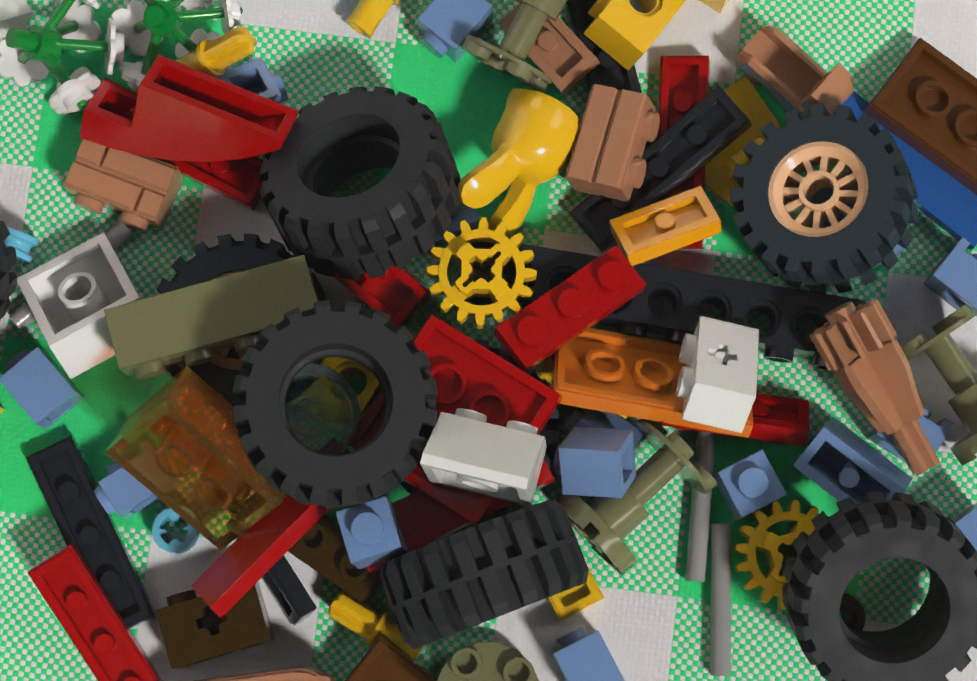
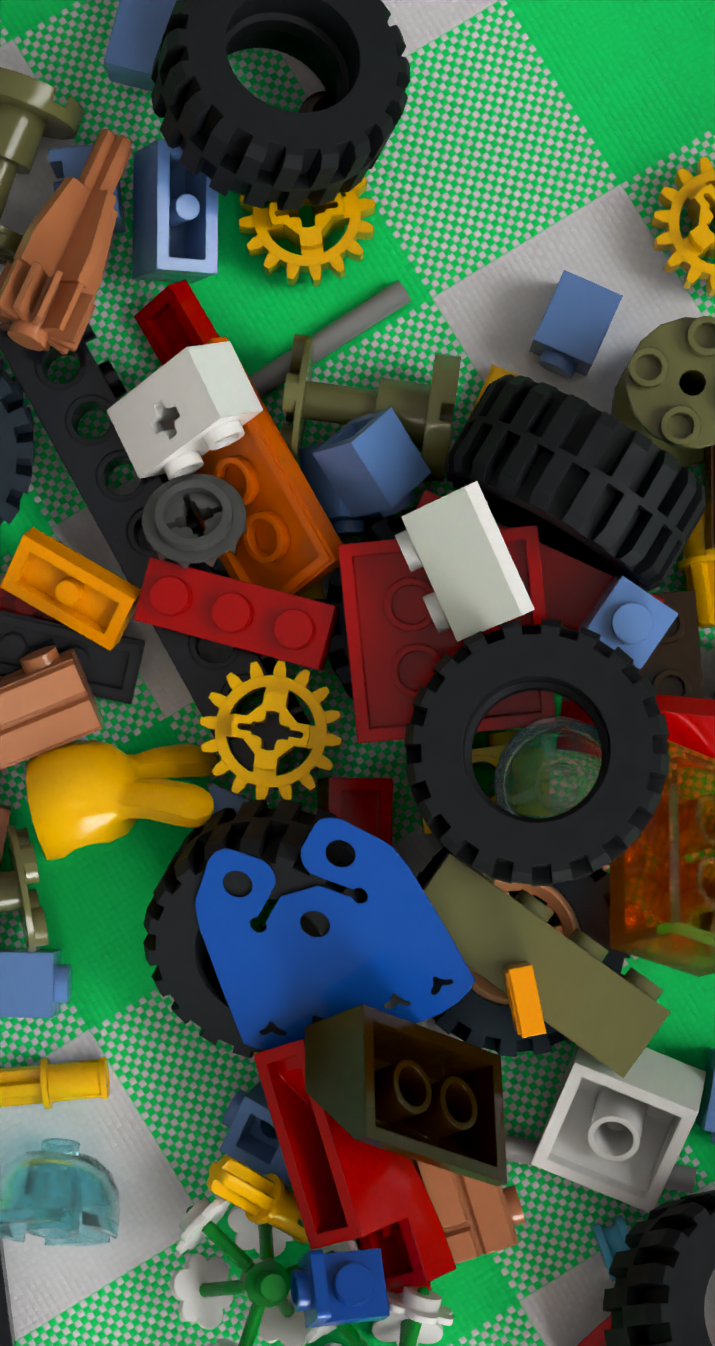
camera: 125 degrees left, 5 degrees up
(123, 55) = (340, 1287): none -> blue bracket
(196, 283) = (524, 999): none -> light orange tile
(197, 177) = (410, 1091): none -> dark brown slope
(299, 196) = (365, 957): none -> blue piece
(665, 315) = (212, 501): none -> dark grey gear
(720, 600) = (402, 251): light grey bar -> none
(748, 485) = (269, 305): medium blue brick -> none

